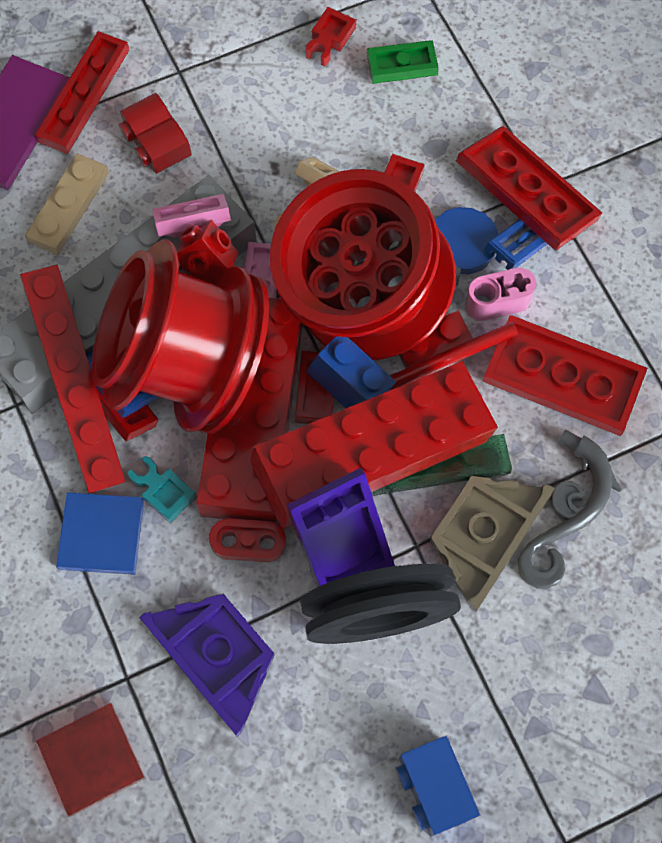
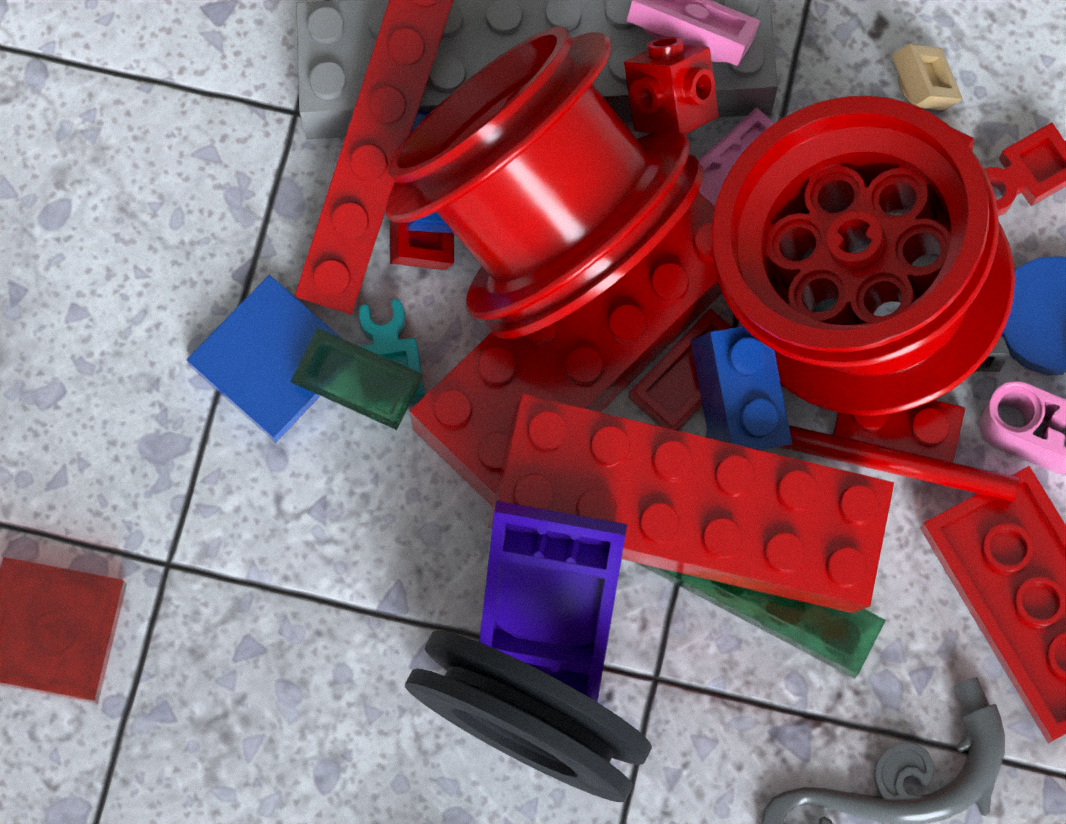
camera: 40 degrees right, 5 degrees up
(155, 508) = (357, 378): none -> clear green tile
(216, 654) = (293, 619): dark purple wing -> none
(248, 539) = (445, 507): red plate -> none
(485, 531) = (758, 728): dark tan wing -> none

